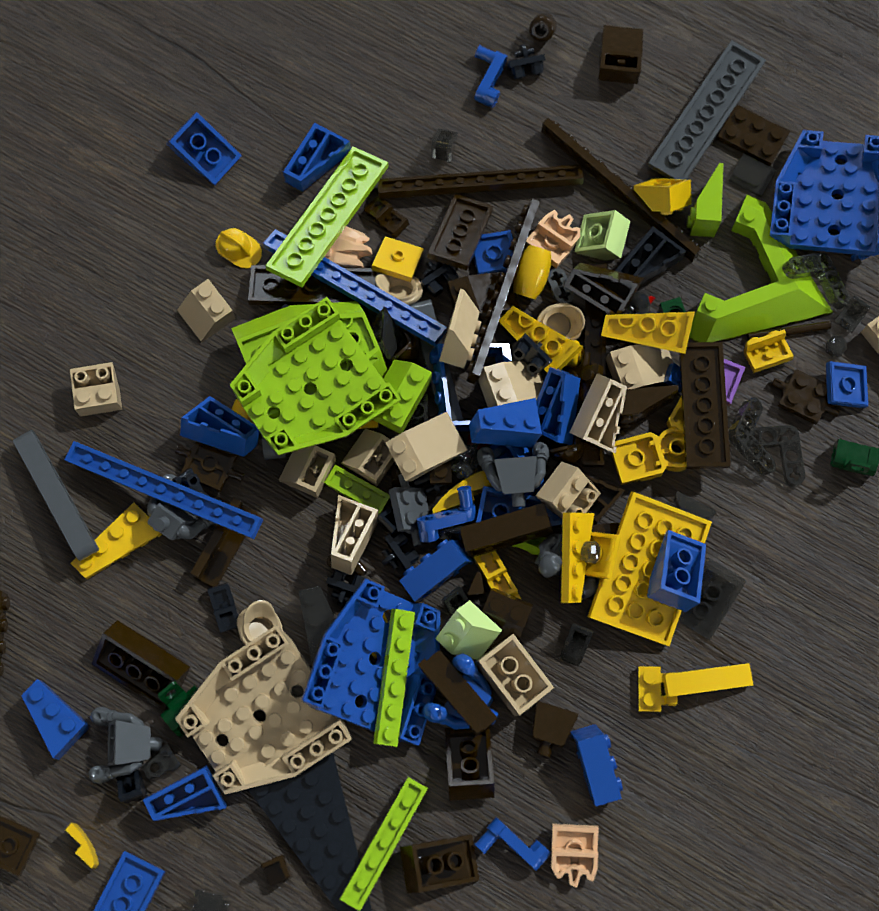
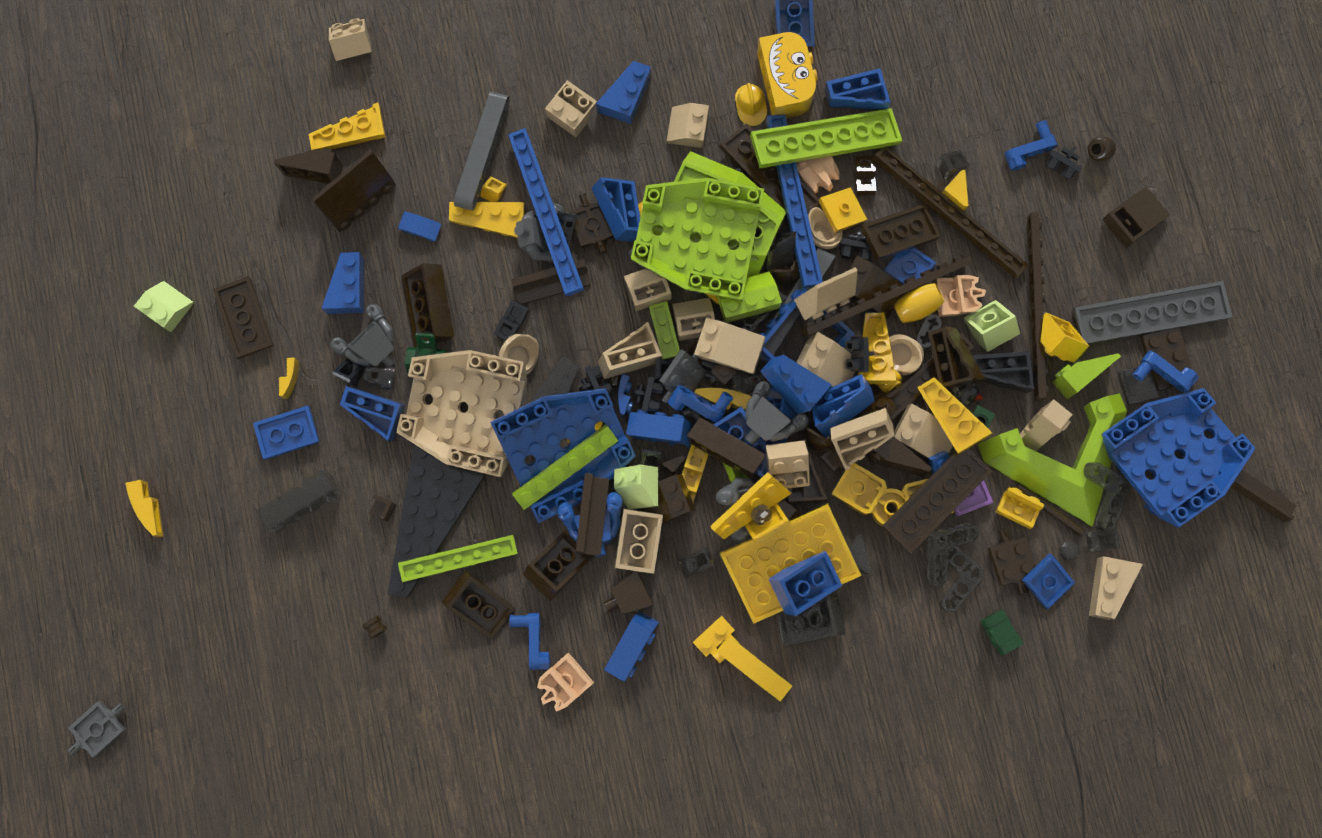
camera: 50 degrees right, 5 degrees up
(64, 607) = (419, 226): none -> blue slope
(96, 517) = (492, 189): none -> yellow slope
(129, 337) = (626, 93): none -> blue wedge
(244, 195) = (787, 73): none -> yellow brick
(383, 577) = (624, 401): none -> blue slope
(470, 160) = (957, 190): none -> yellow slope
(722, 268) = (1045, 424): none -> tan wedge
(781, 140) = (1181, 380): none -> blue beam

